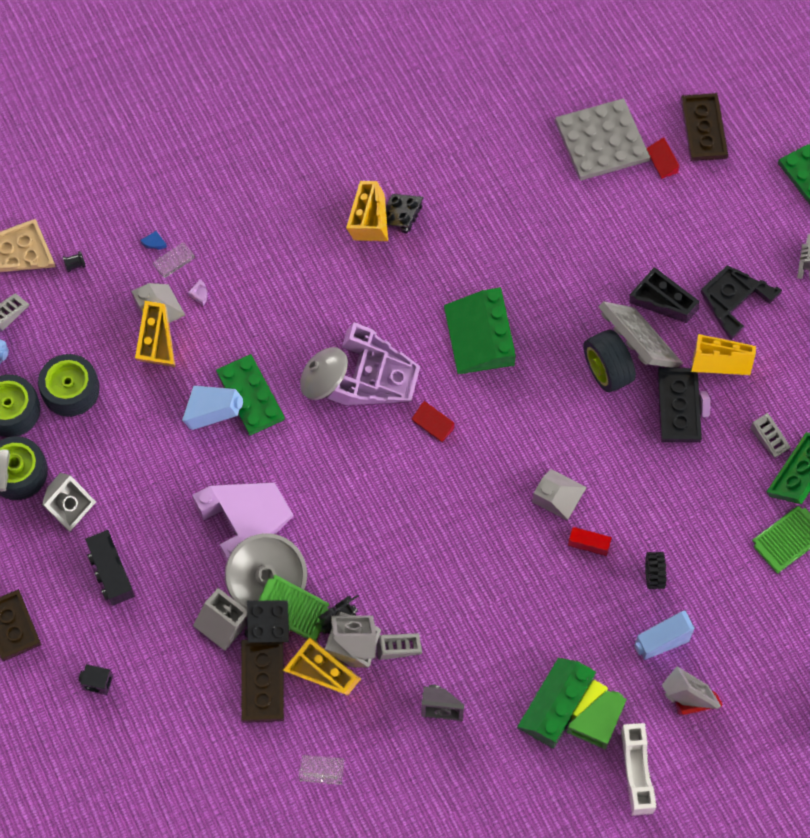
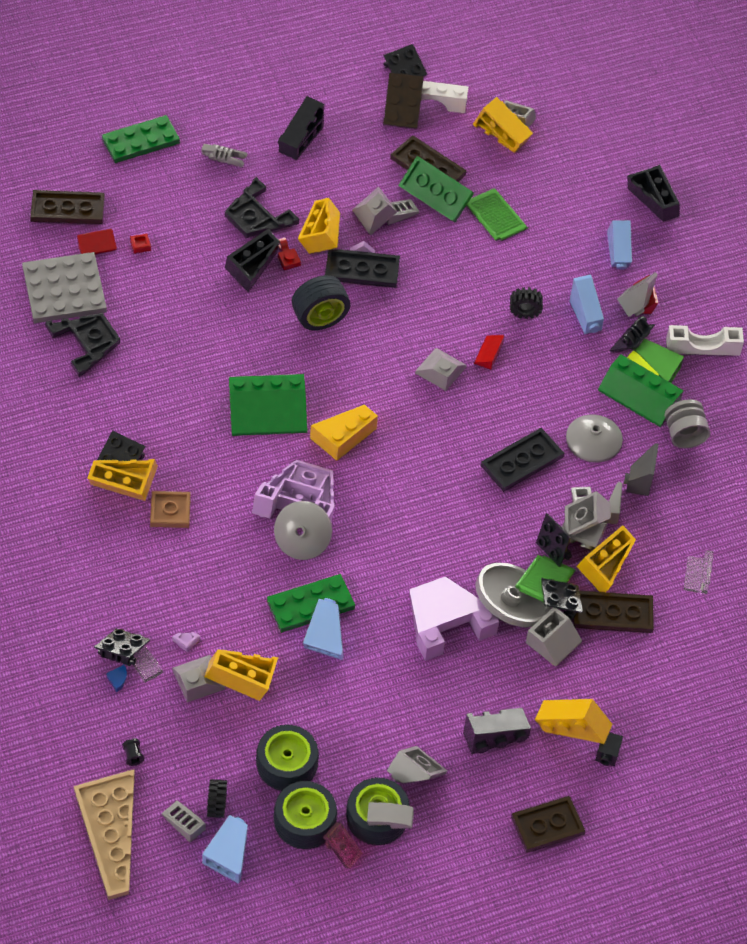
camera: 90 degrees left, 10 degrees down
(23, 330) = (217, 798): none -> black tyre
(116, 638) = (574, 719): none -> yellow wedge
(184, 237) = (121, 646): none -> black hinge
(346, 262) = (170, 509): none -> medium nougat tile
(396, 676) = (615, 502): none -> light grey slope
(433, 421) = (358, 454): red slope -> none
(447, 580) = (522, 459): none -> black plate
(456, 403) = (344, 431): none -> yellow wedge
(486, 668) = (594, 445): none -> light grey dish
(511, 748) = (687, 423): none -> light grey wheel
(540, 172) = (92, 333): none -> black wing
(628, 687) = (633, 335): none -> black hinge
(639, 335) = (301, 275): light grey plate -> none
(672, 197) = (140, 243): none -> red tile
(682, 334) = (288, 257): none -> red plate
(759, 408) = (374, 210): none -> light grey slope
(765, 670) = (620, 243): none -> light blue slope

